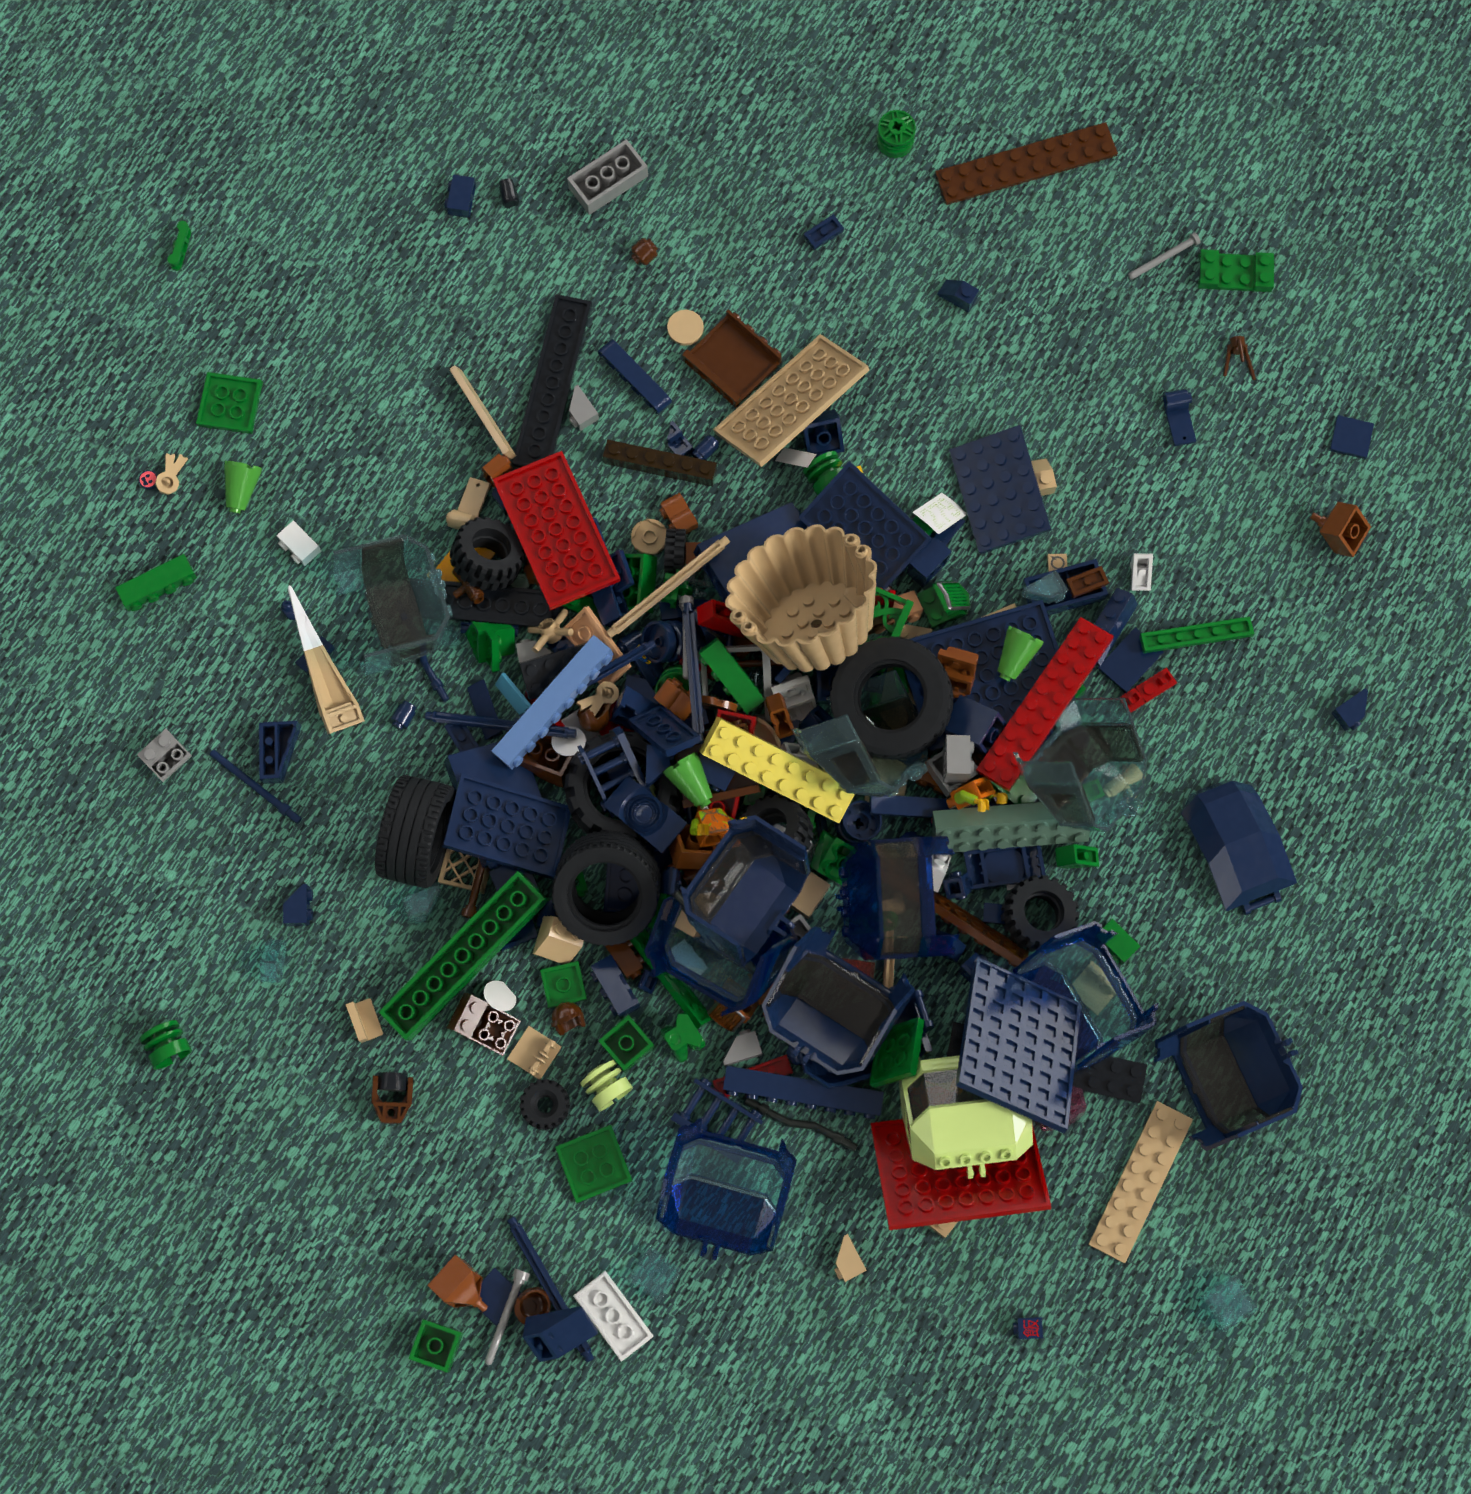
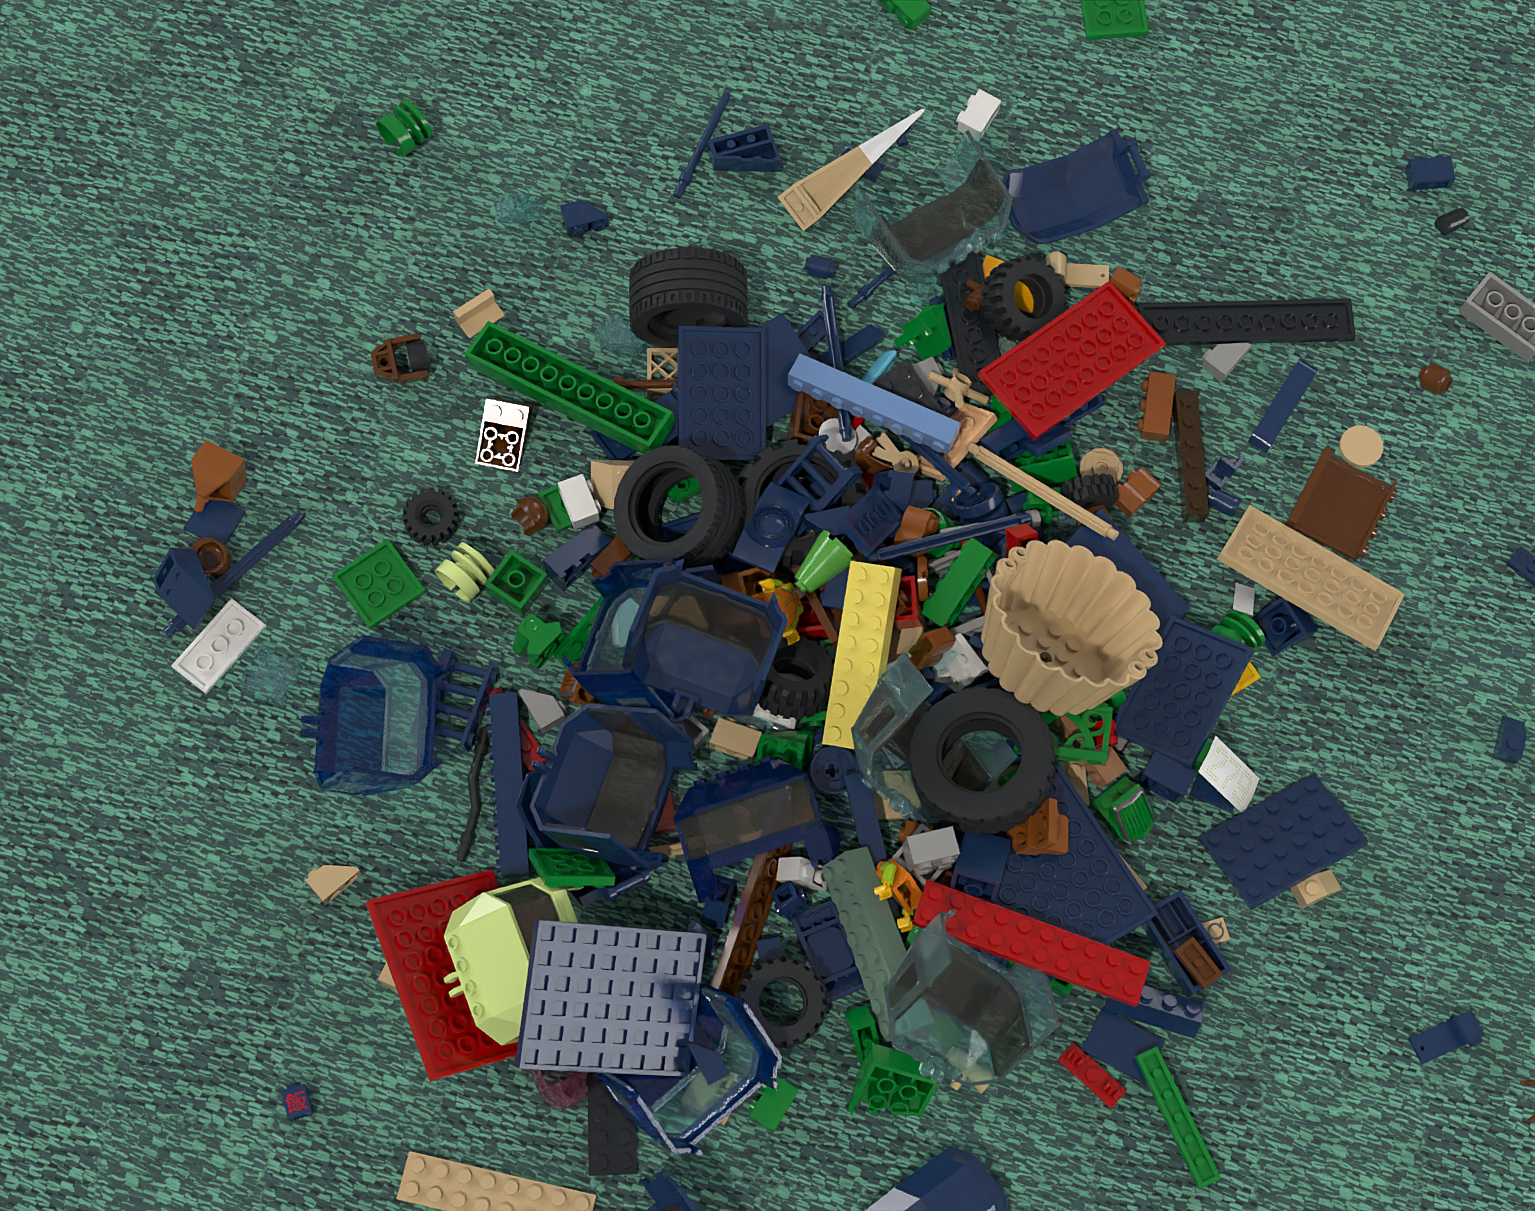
camera: 70 degrees right, 5 degrees down
(164, 755) = (710, 46): light grey slope -> none
(239, 484) = (1024, 40): bright green cone -> none
(397, 480) = (1077, 190): none -> dark blue windscreen
(436, 1345) = (148, 471): green brick -> none
(482, 412) = (1186, 257): tan tile -> none
(499, 996) = (537, 440): white sticker -> none
(519, 1279) = (238, 537): light grey piece -> none
(534, 1052) = (485, 493): tan hinge -> none
(568, 972) = (579, 501): none -> white brick
(608, 476) = (1156, 406): none -> dark orange brick
(647, 982) = (589, 592): dark blue slope -> none
(1017, 652) = (1082, 894): bright green cone -> none
(1048, 589) = (1173, 916): clear light blue slope -> none
(1077, 982) = (709, 1063): none -> dark blue slope
(1120, 846) = (893, 1082): none -> green wedge
(1141, 571) = (1234, 1032): white slope -> none

